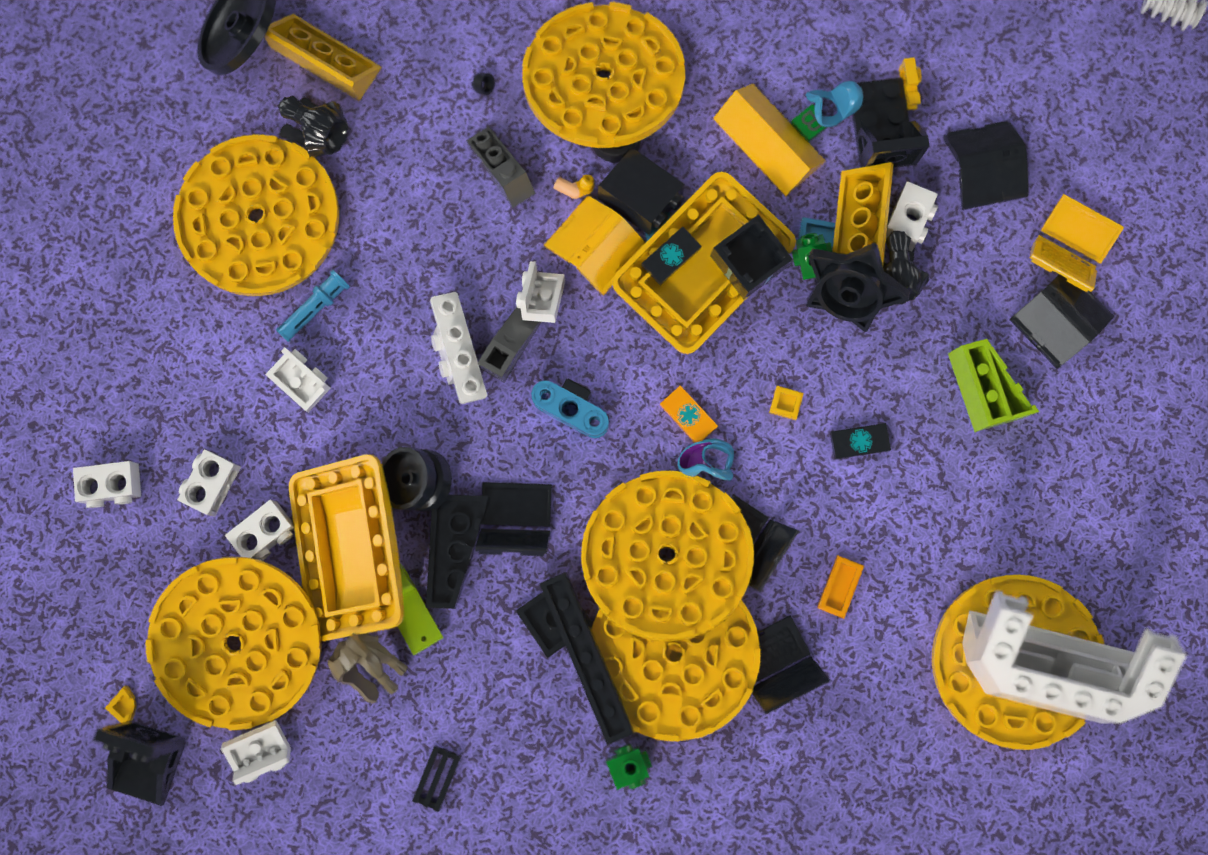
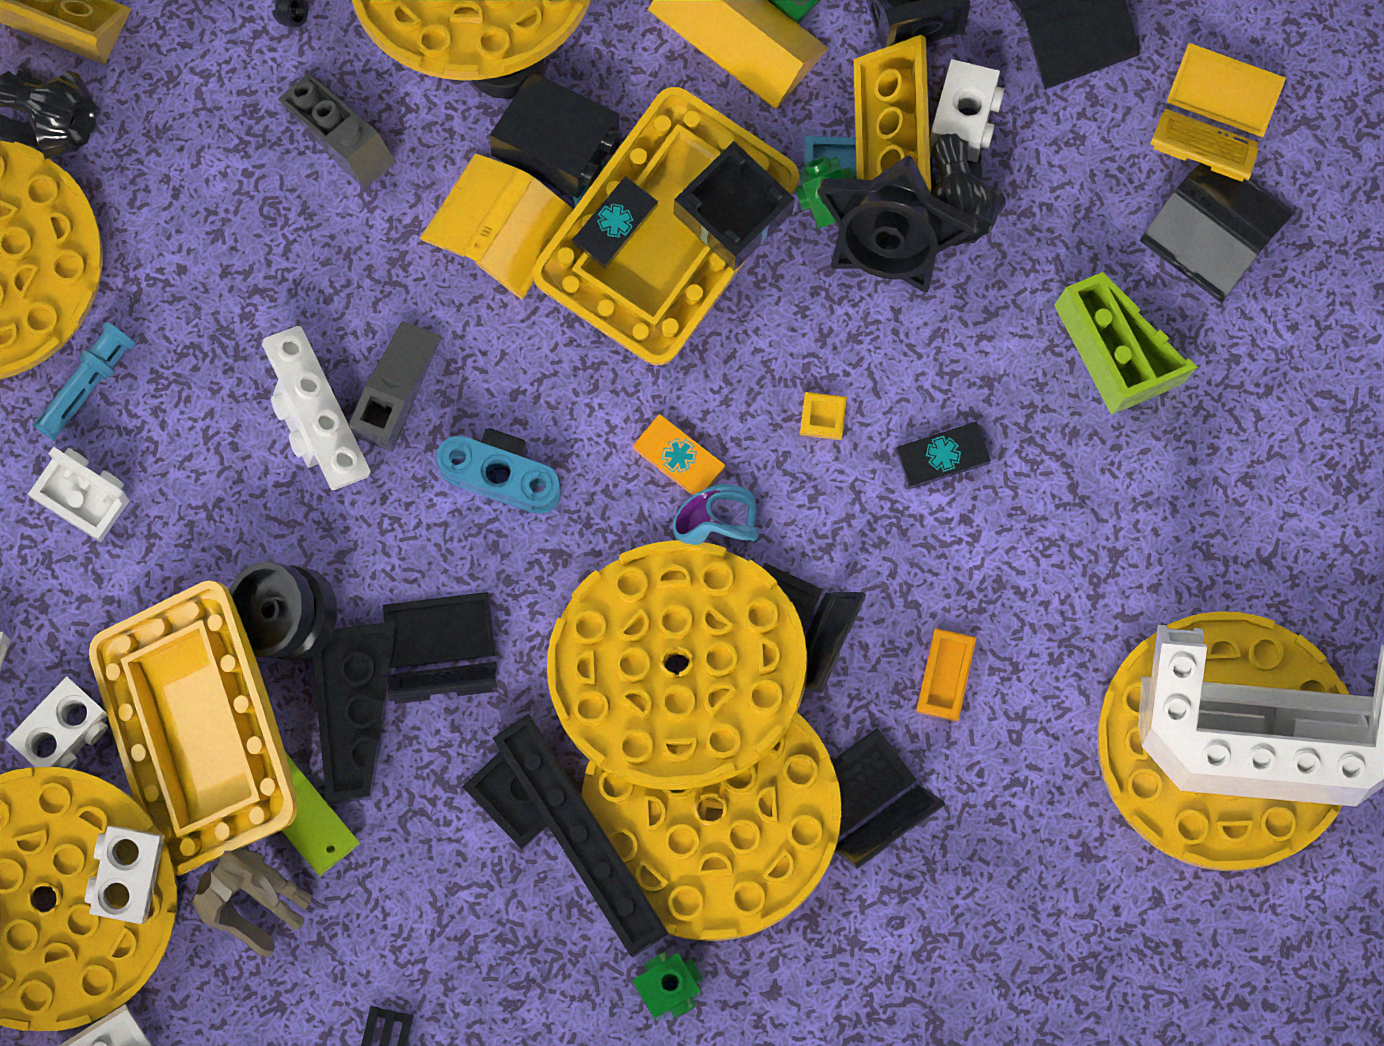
camera: 10 degrees left, 5 degrees down
(291, 641) = (137, 877): none -> white brick
(540, 295) = (427, 311): white bracket -> none
(576, 189) = (459, 146): arm -> none

